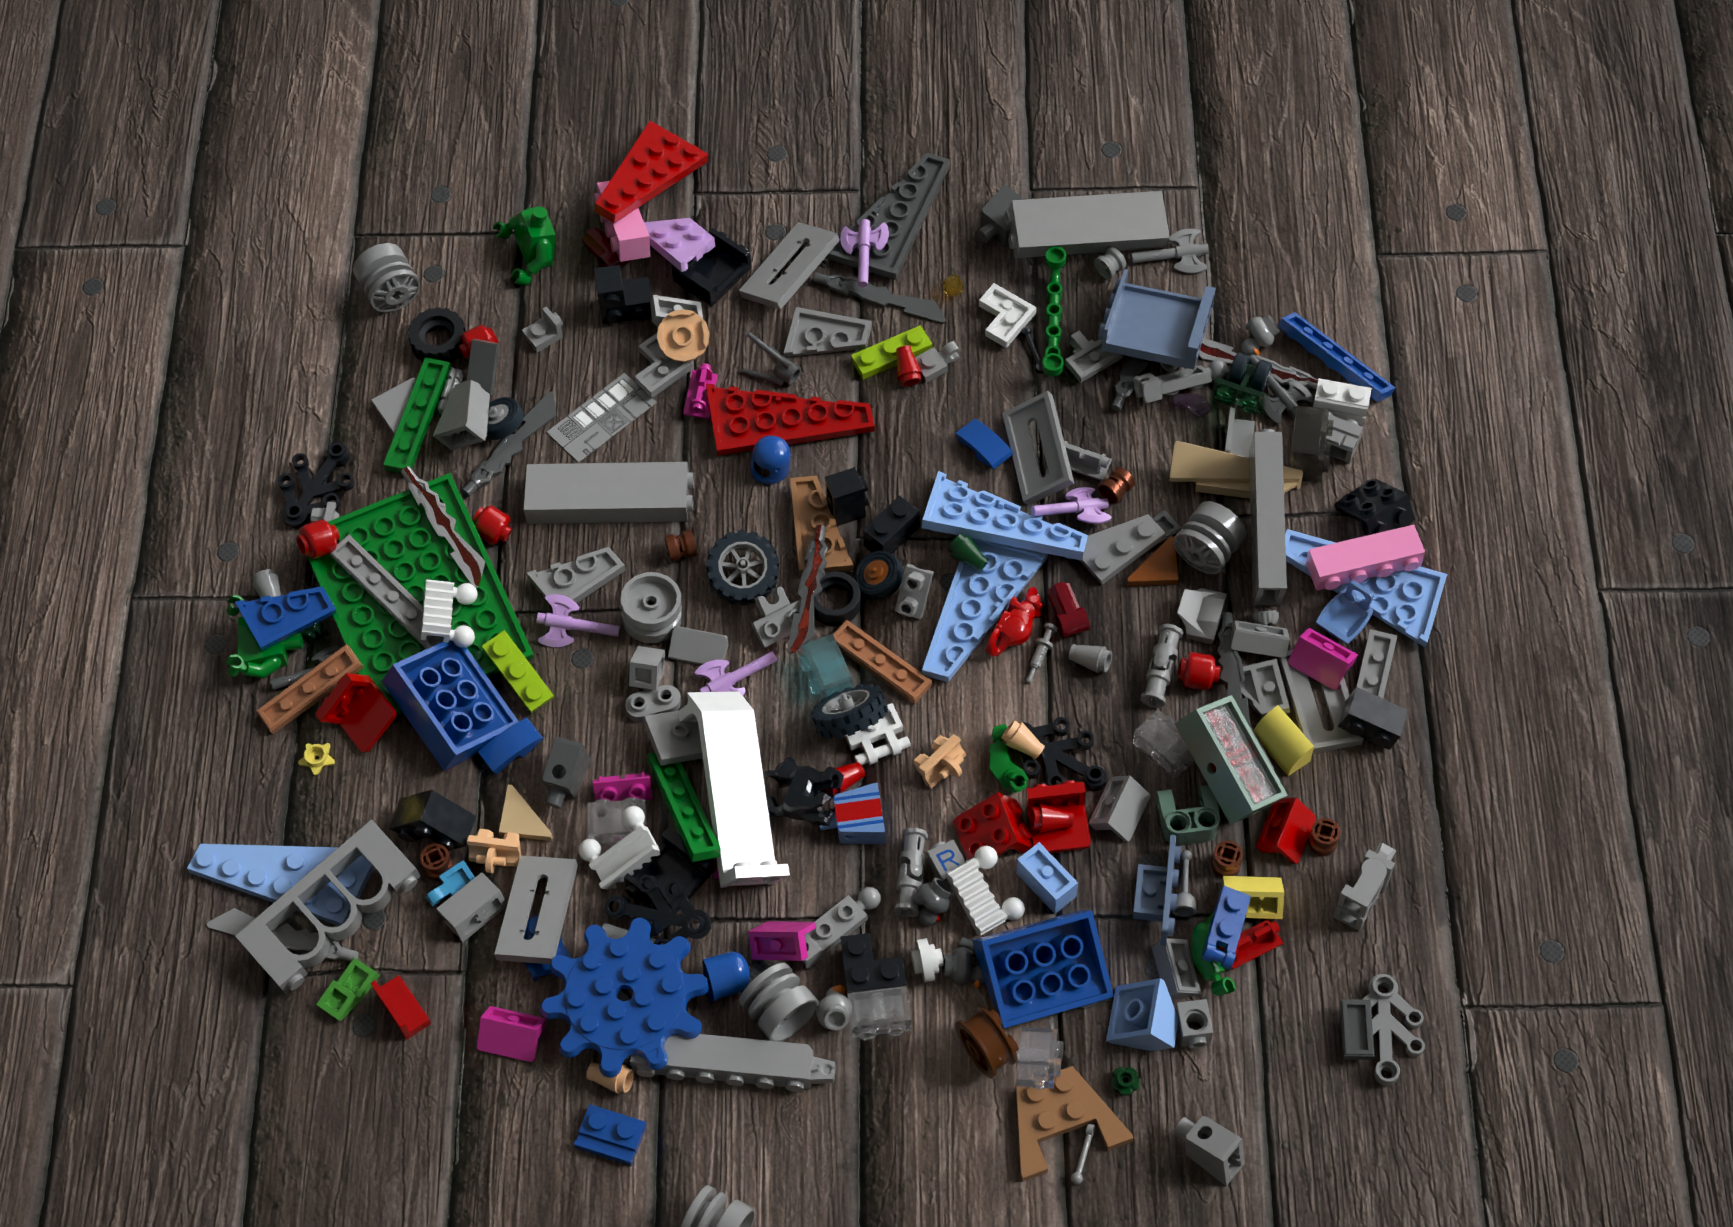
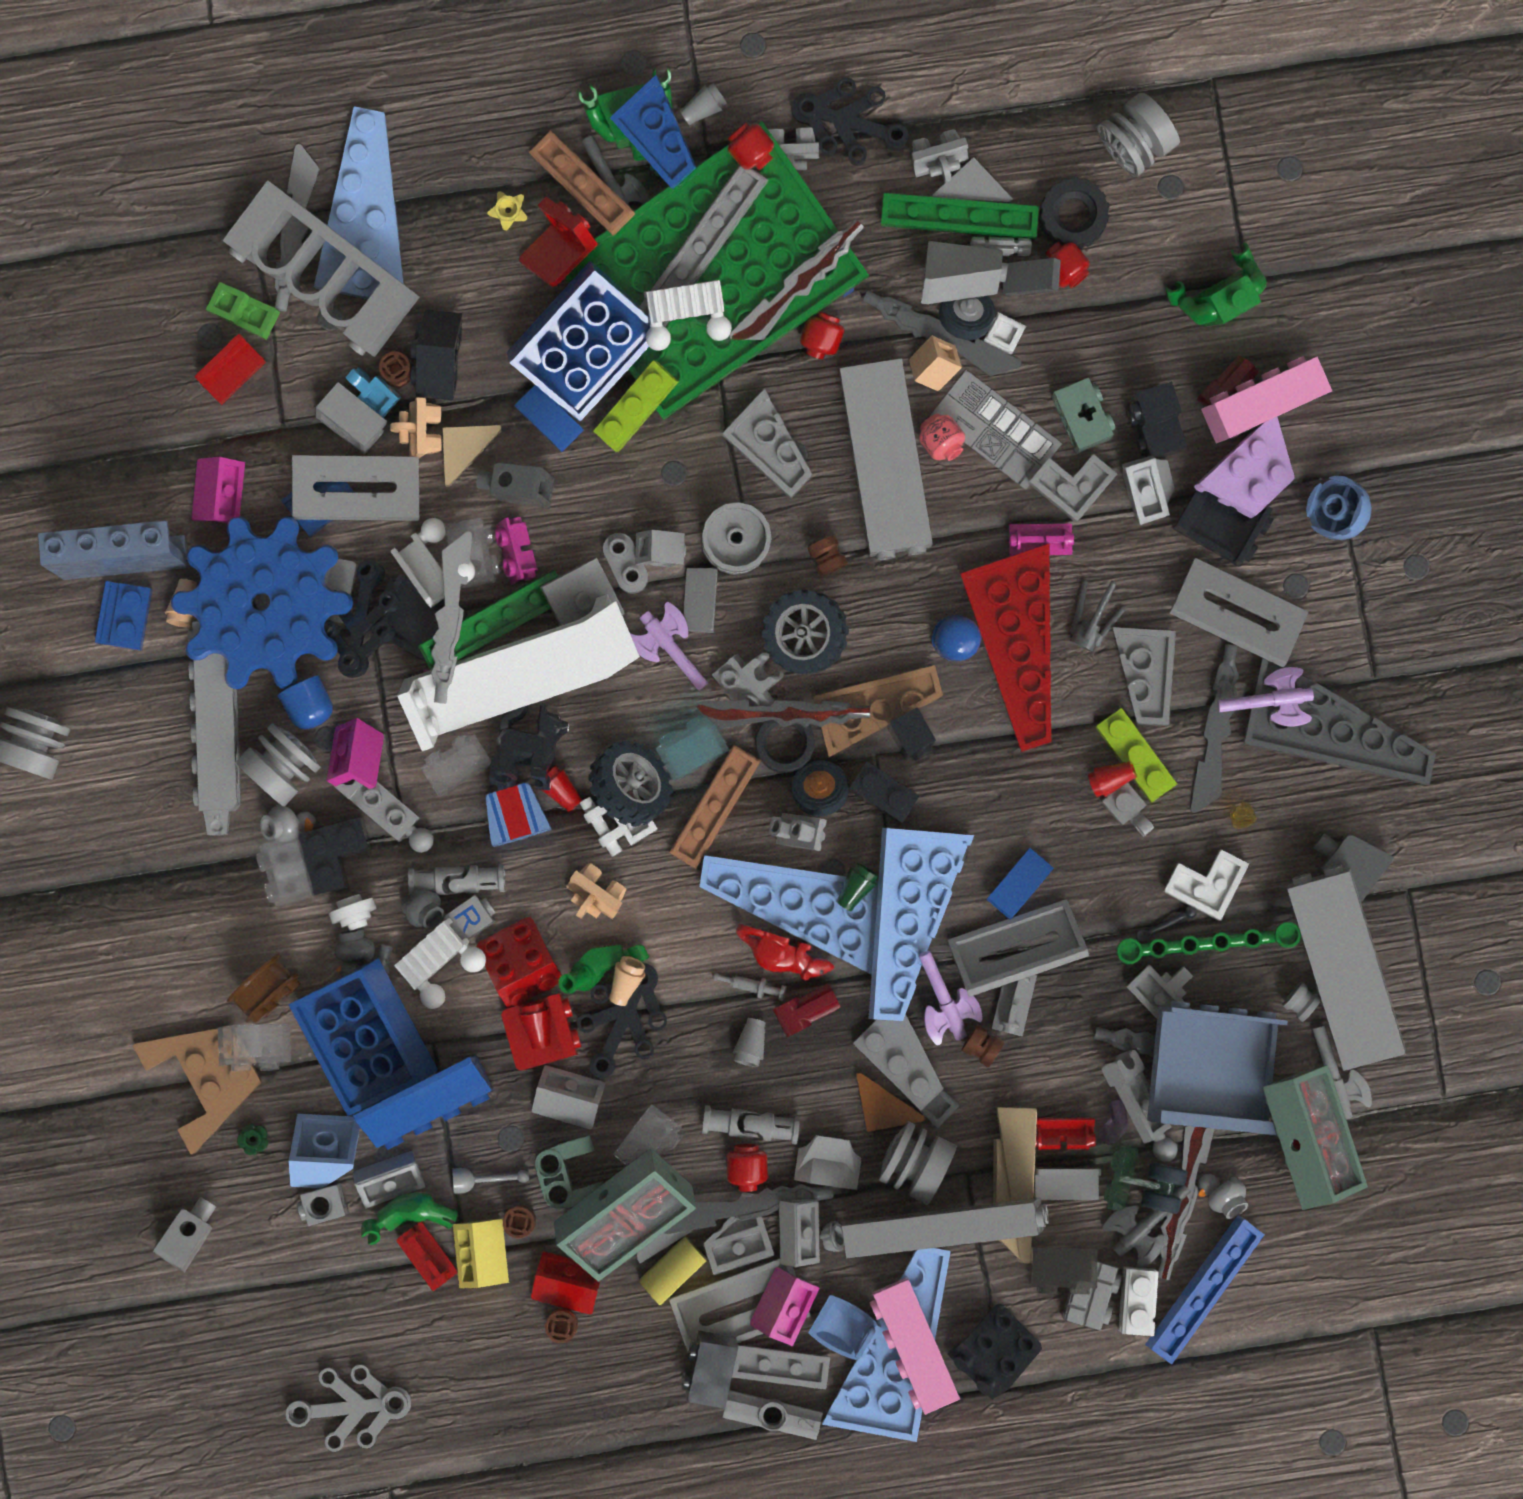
camera: 75 degrees right, 25 degrees up
(366, 420) = (939, 158): none -> light grey hips
(526, 397) = (1004, 333): none -> white tile
(536, 447) = (935, 363): none -> light nougat panel
(544, 331) = (1102, 336): light grey bracket -> none
(549, 1109) = (112, 550): none -> sand blue panel
(560, 622) = (708, 440): lavender piece -> none
(599, 448) = (942, 437): none -> coral head
(605, 350) = (1083, 433): none -> sand green brick
(648, 169) = (1357, 420): red wing -> none
(674, 828) = (450, 616): none -> light grey sword
(683, 335) = (1104, 505): light nougat tile -> none
(720, 184) = (1339, 508): none -> medium blue cylinder
(806, 856) = (456, 764): none -> clear brick
(1047, 878) = (467, 1028): light blue panel -> none
(1076, 1177) = (143, 1101): light grey hinge -> none
(1117, 934) = (425, 1102): none -> blue slope
(1154, 893) = (467, 1146): sand blue bracket -> none
(1197, 427) = (1076, 1132): none -> red hinge
(1221, 261) = (1315, 1137): none -> sand green brick
(1226, 927) = (425, 1228): plate -> none
(1356, 1029) = (340, 1377): dark grey tile -> none
(1373, 877) = (502, 1379): light grey hips -> none
(1420, 668) = (794, 1419): none -> light grey piece

